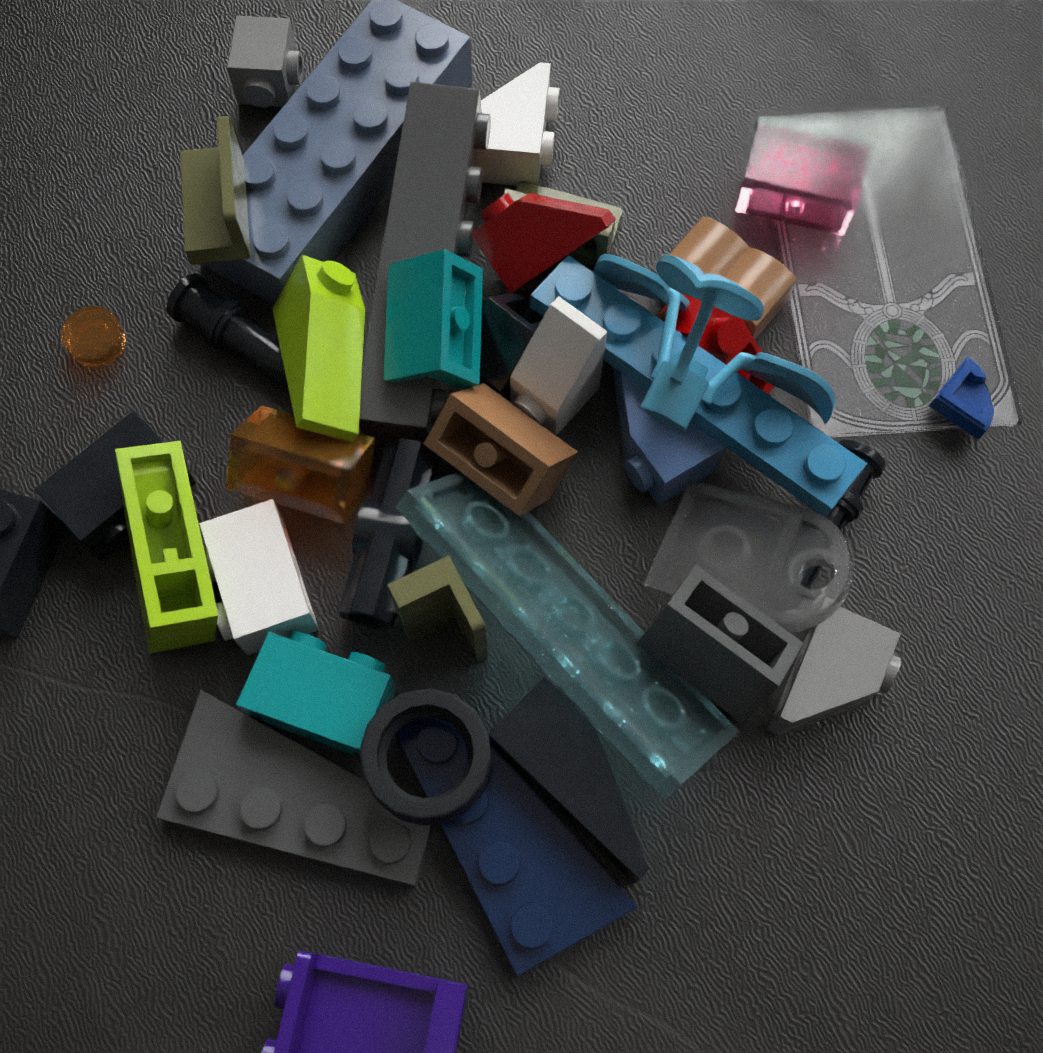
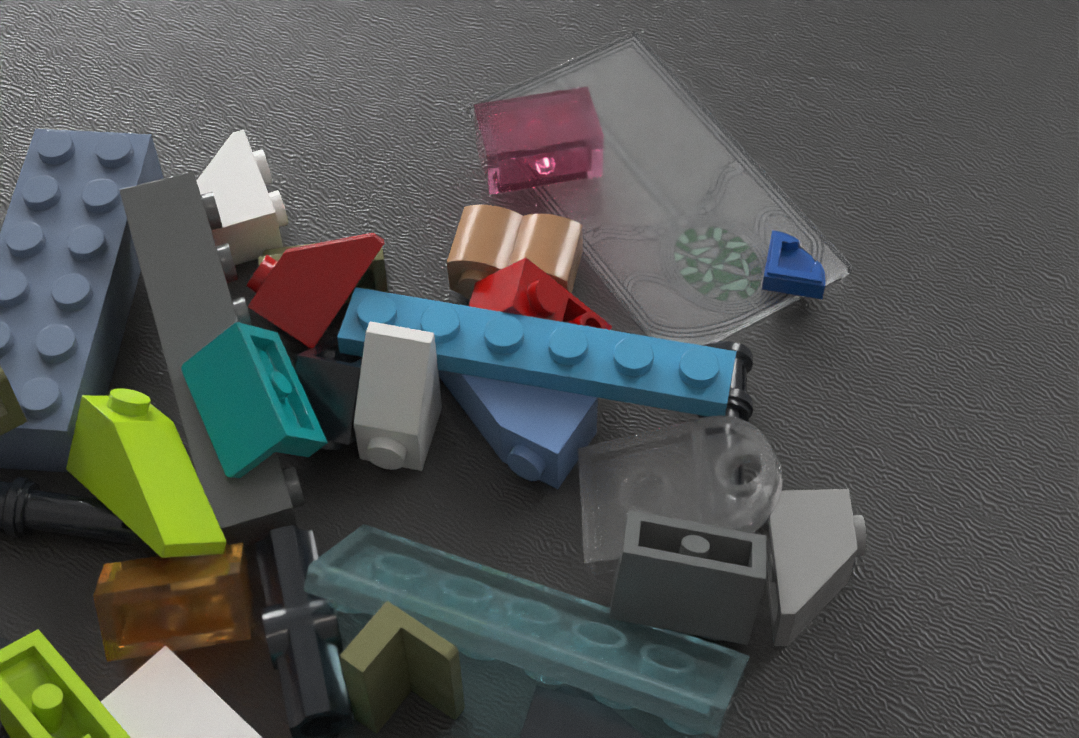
camera: 25 degrees left, 15 degrees down
(500, 448) = (376, 496): medium nougat brick -> none
(681, 383) = (528, 348): medium azure plant -> none

